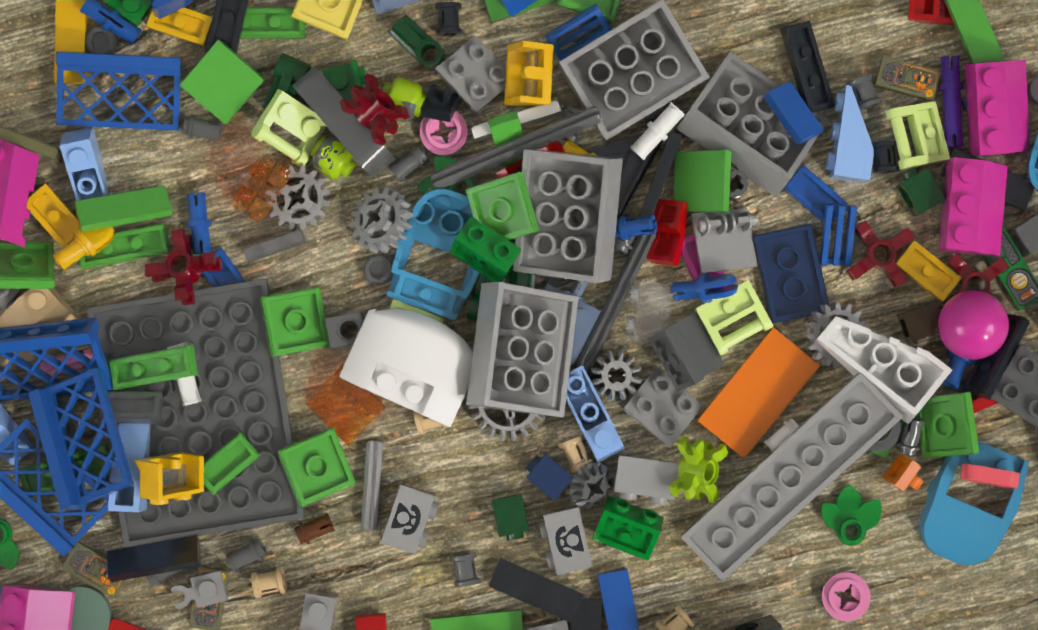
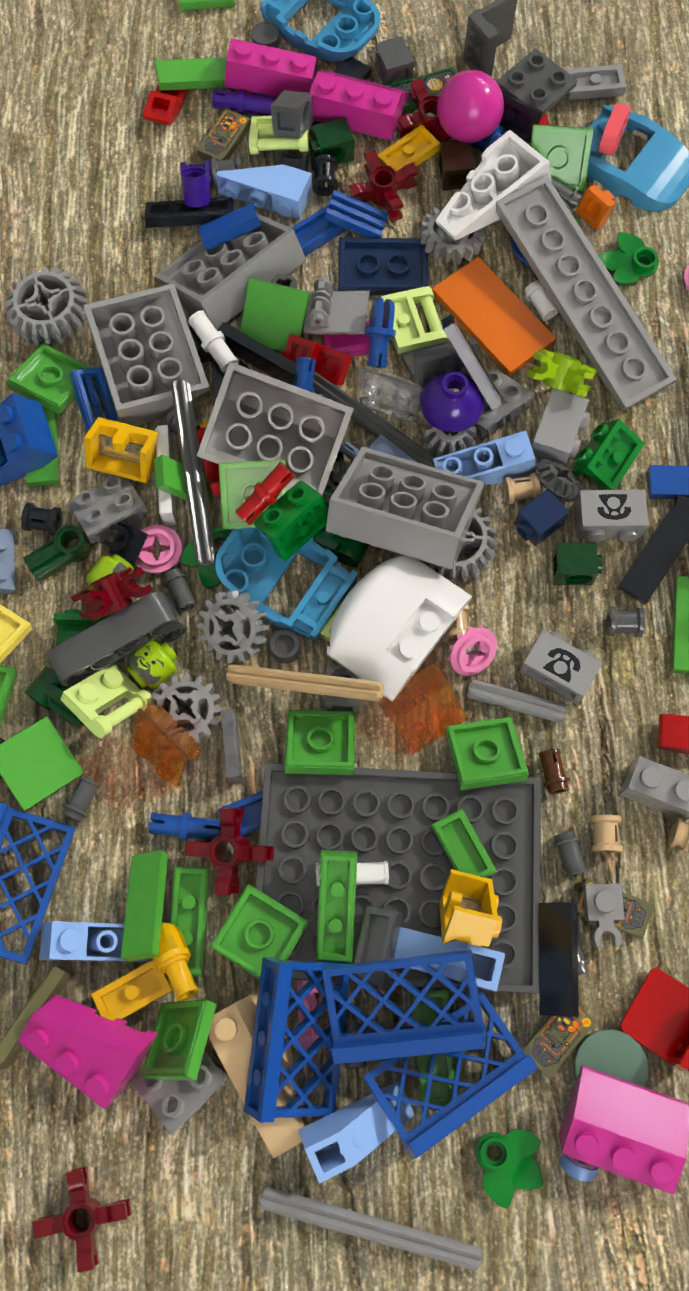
camera: 75 degrees left, 15 degrees down
(122, 308) = (258, 930): none -> bright green tile
(339, 296) = (305, 682): none -> tan axle
(405, 437) = (475, 660): none -> bright pink gear
(497, 221) = (265, 493): none -> red pin
(623, 376) = (450, 409): none -> dark purple piece
(671, 382) = (471, 361): none -> tile
(838, 67) = (196, 183): none -> dark purple piece
(889, 192) = (324, 175): none -> black bush
(929, 145) = (292, 114): none -> dark grey brick

